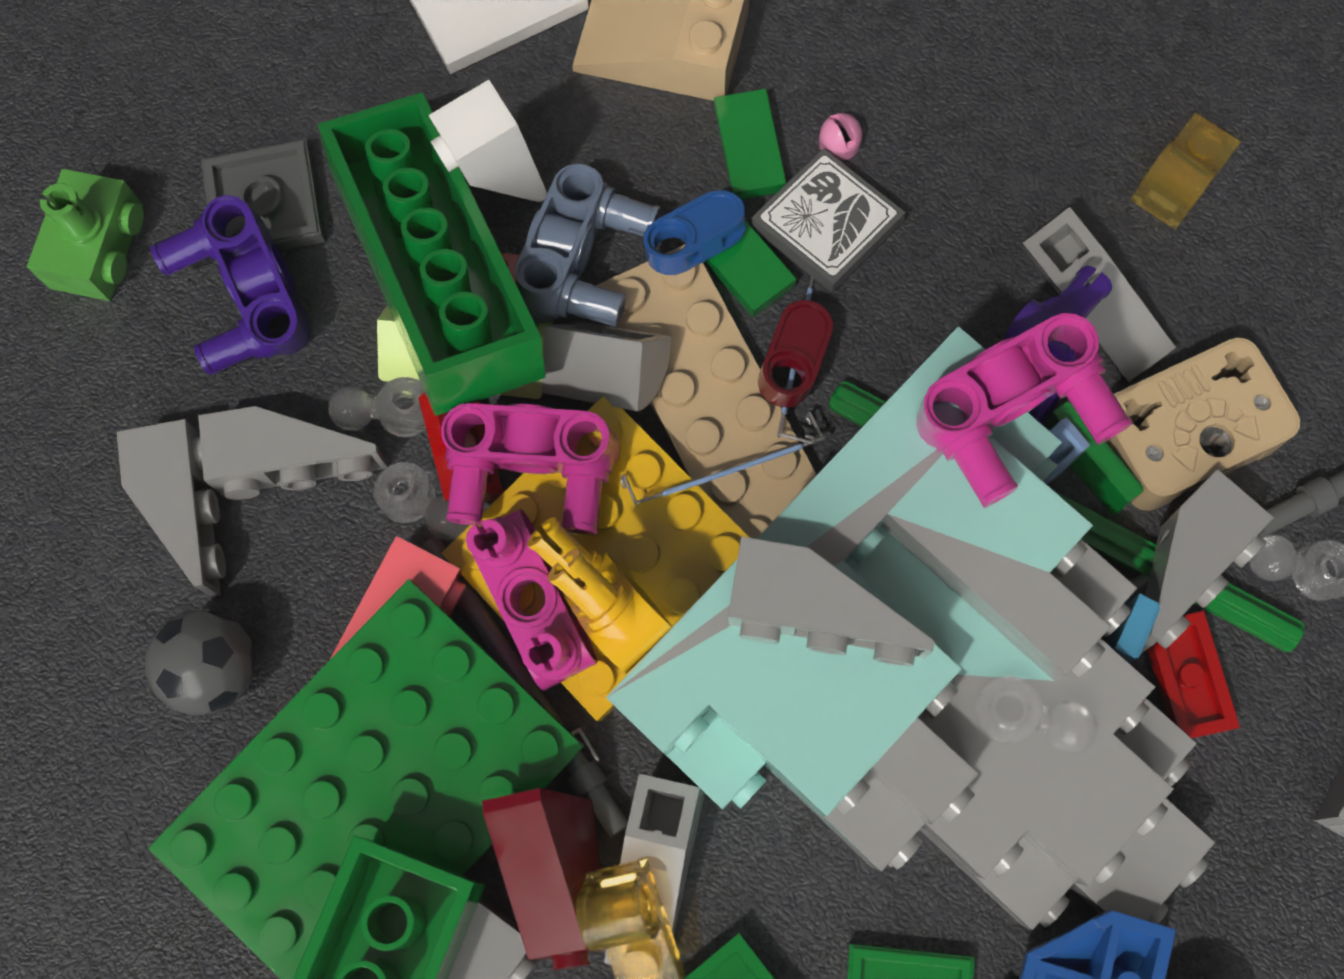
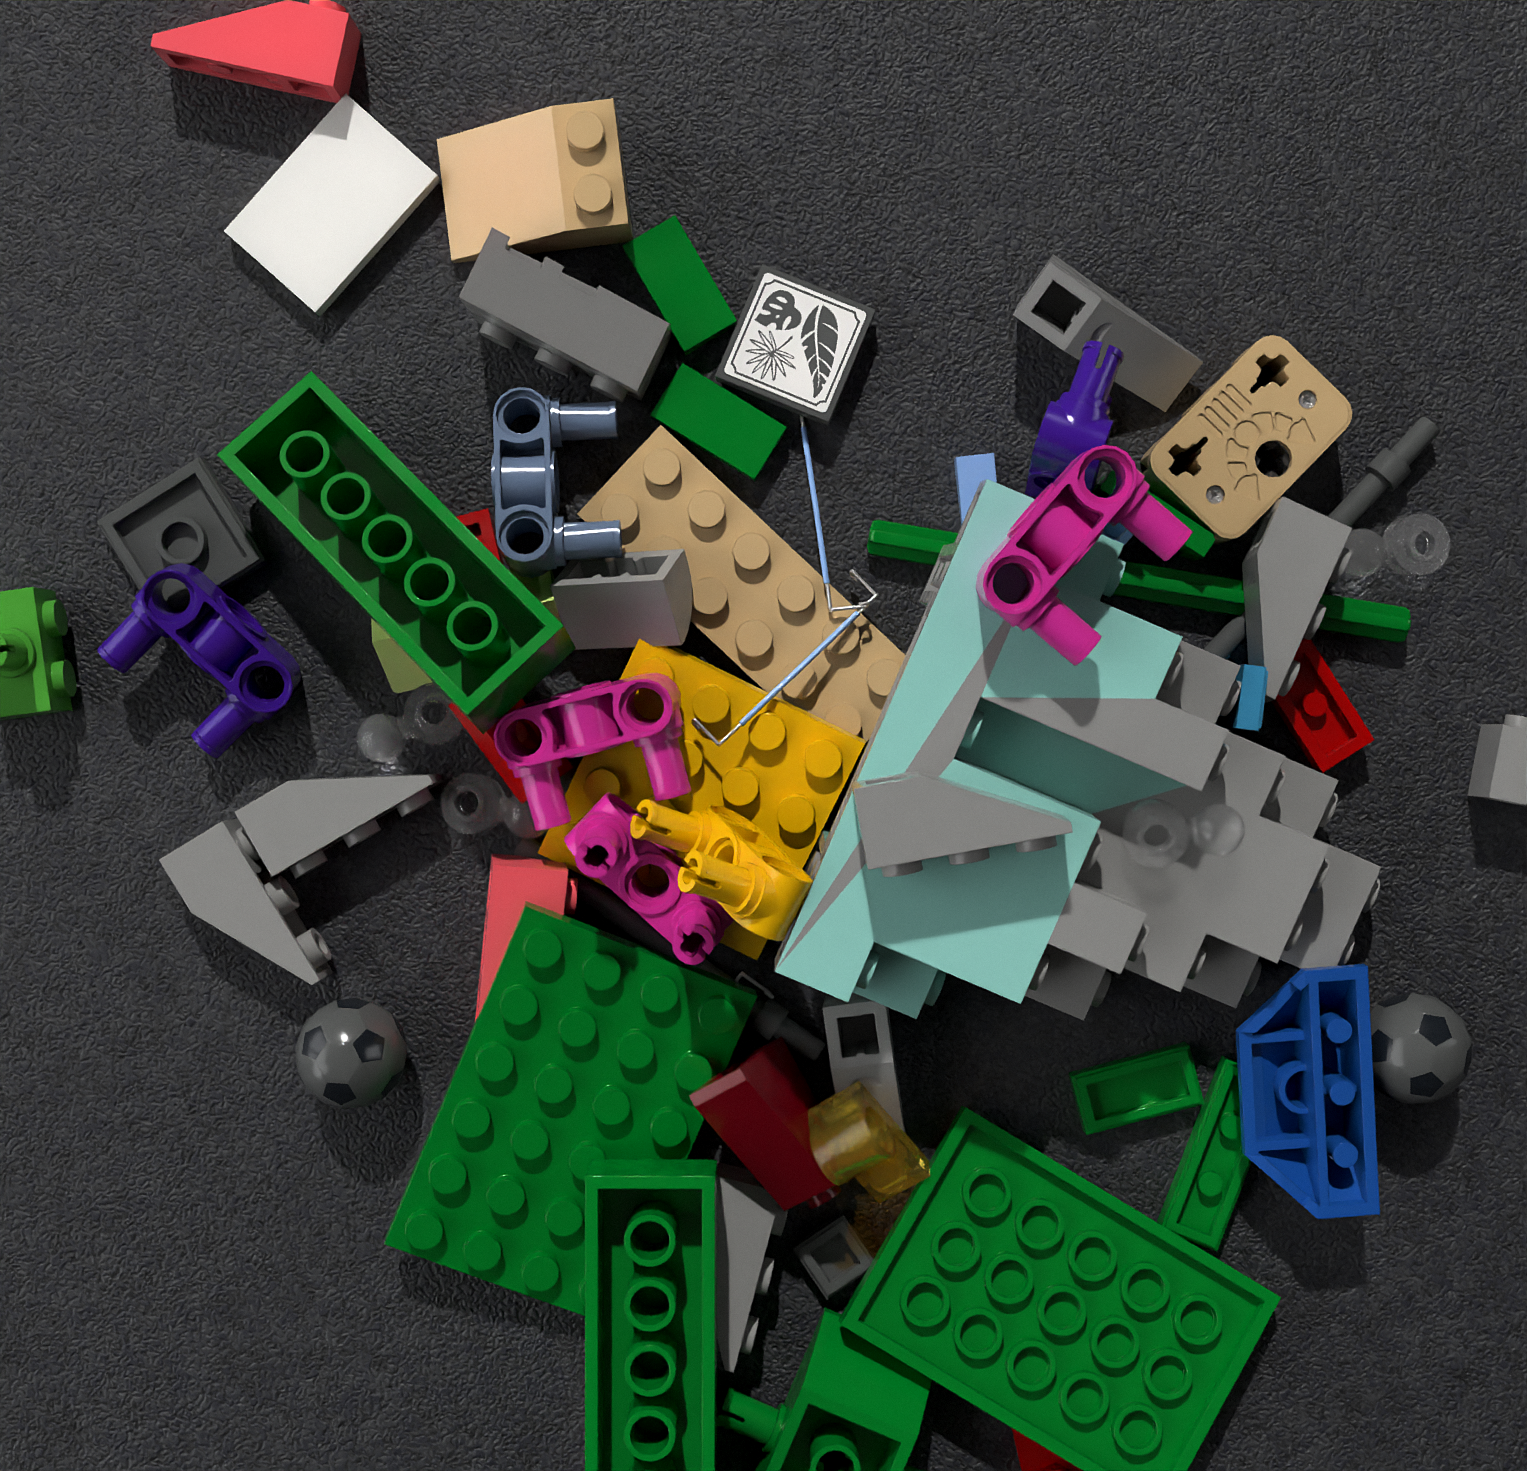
camera: 20 degrees left, 15 degrees up
(486, 144) = (412, 423): white slope -> none
(639, 128) = (564, 320): none -> light grey wedge
(705, 225) = (674, 408): blue piece -> none
(798, 344) = (816, 502): dark red piece -> none
(833, 140) = (766, 249): bright pink hinge -> none
(1184, 170) = (1156, 147): clear yellow plate -> none

